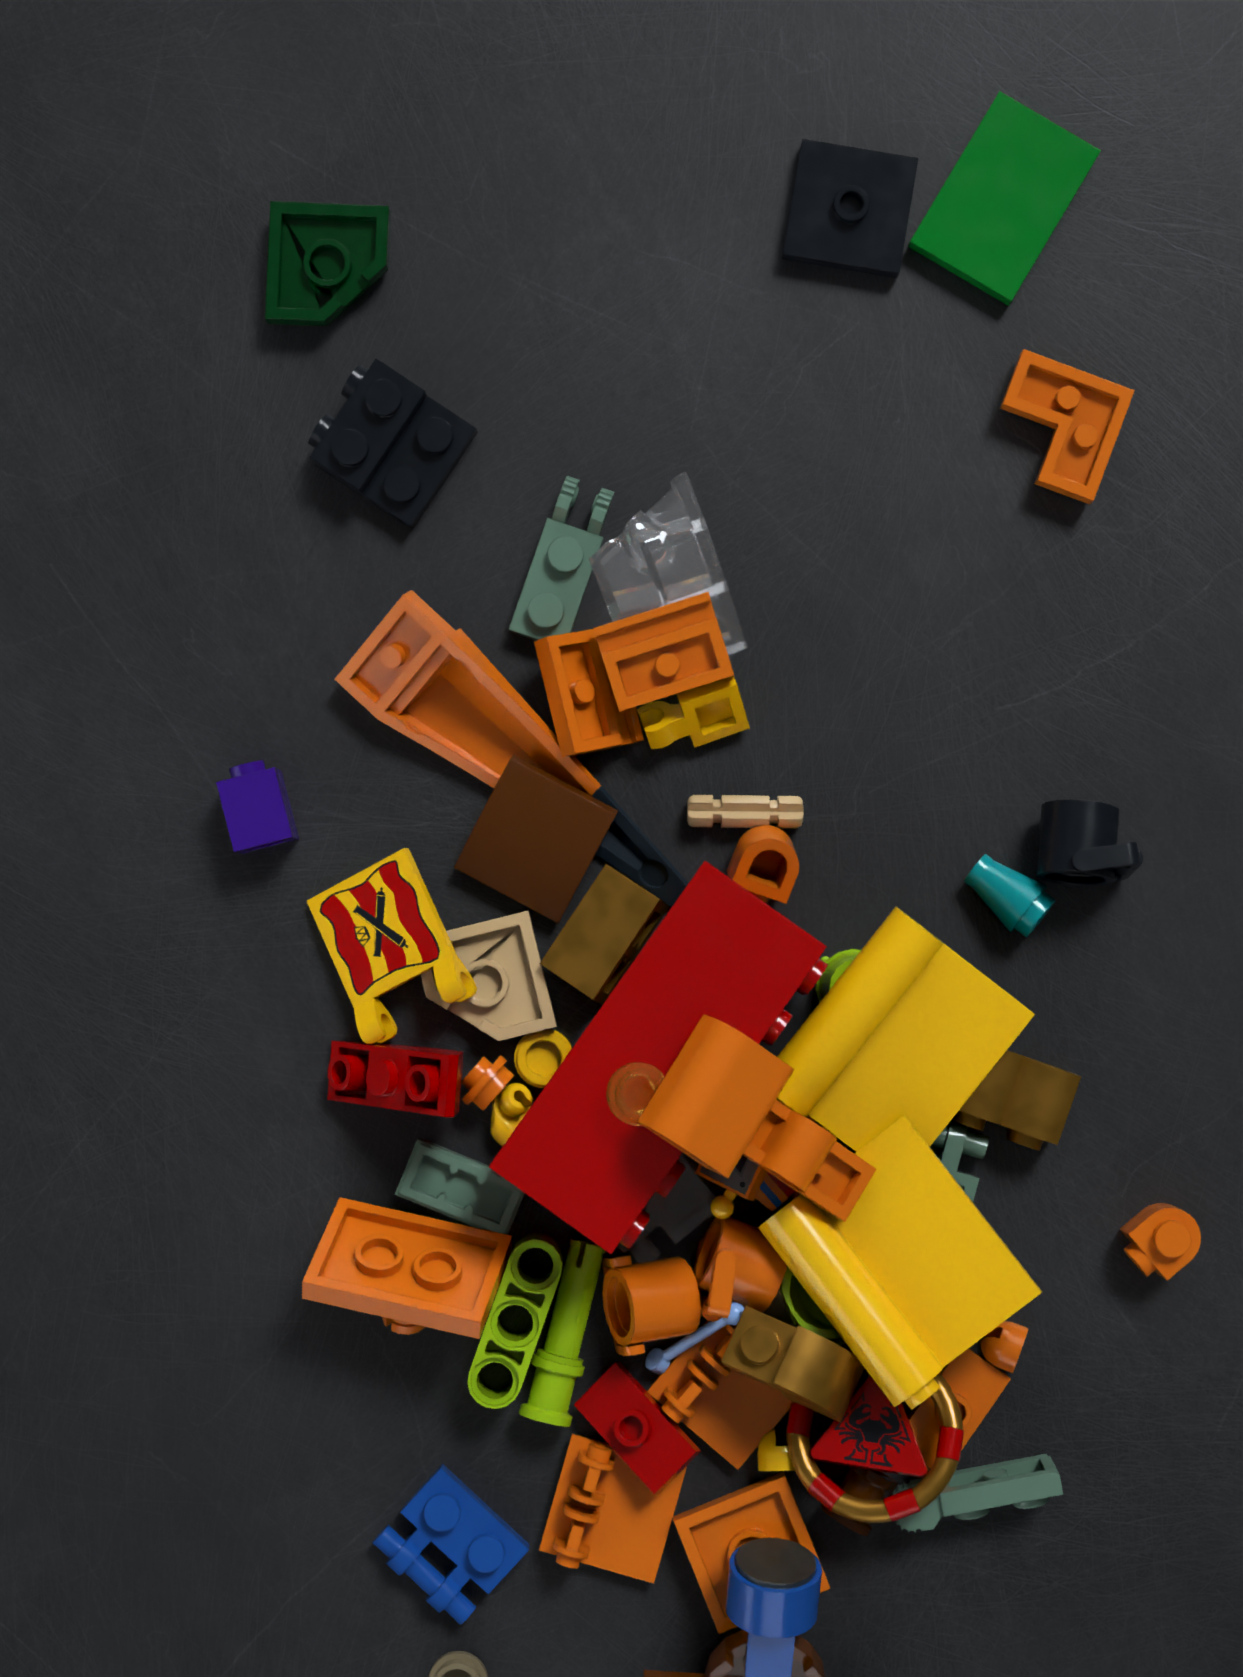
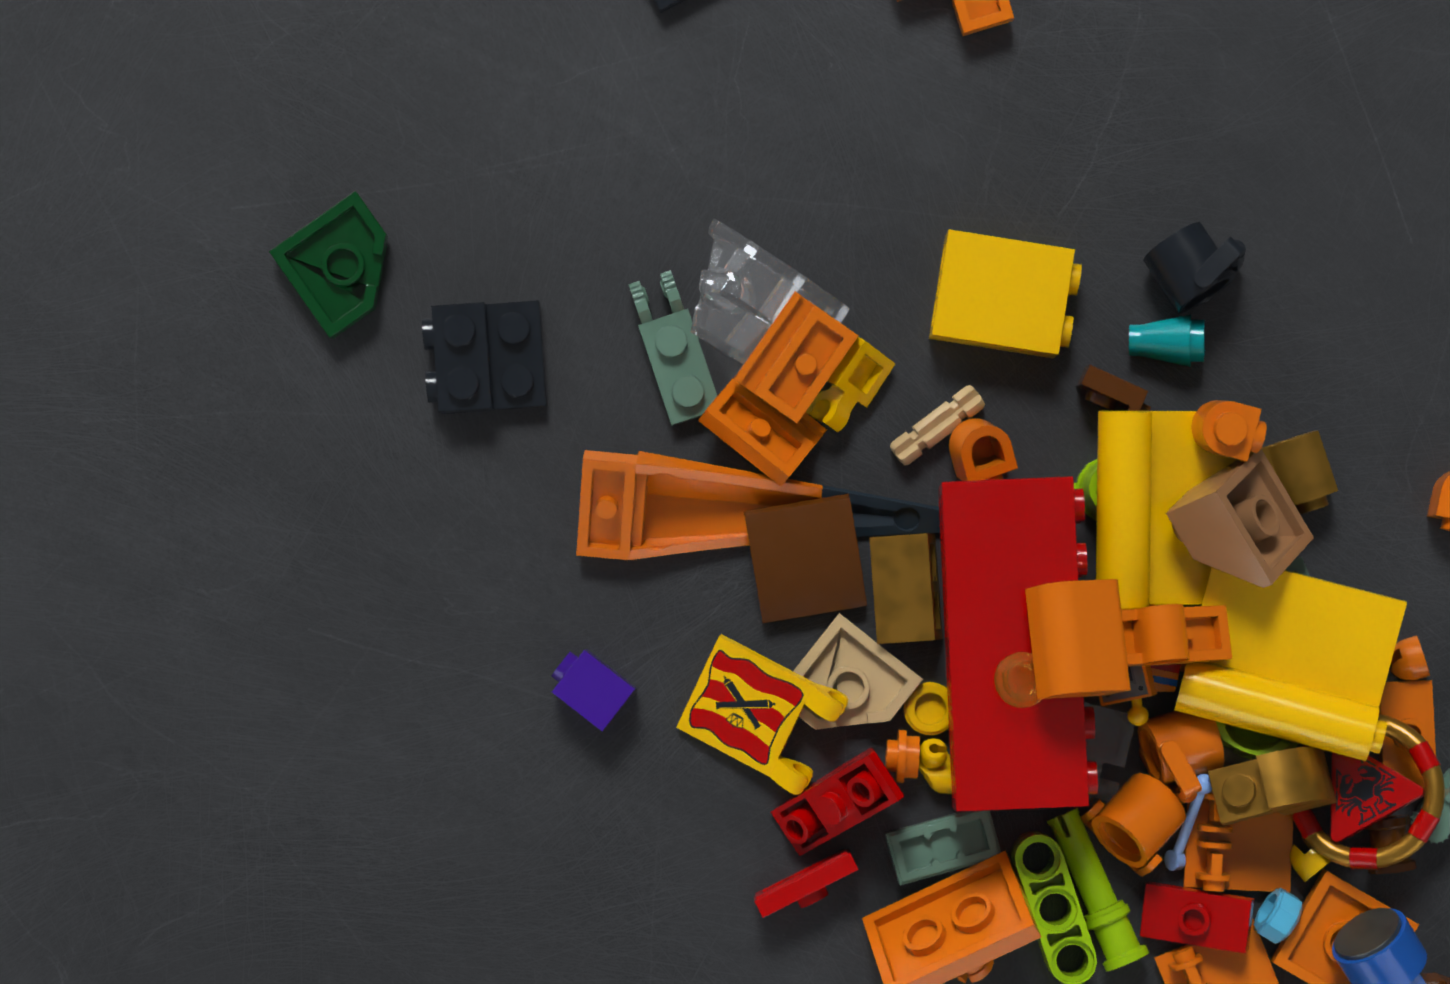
camera: 30 degrees left, 0 degrees up
(312, 1129) = (805, 885): none -> red plate
(710, 1482) = (1278, 915): none -> medium azure tile
(894, 740) = (1004, 294): none -> yellow brick
(921, 898) = (1109, 390): none -> reddish brown bracket
(948, 1105) = (1242, 522): none -> medium nougat slope
(1001, 1013) = (1229, 429): none -> orange plate

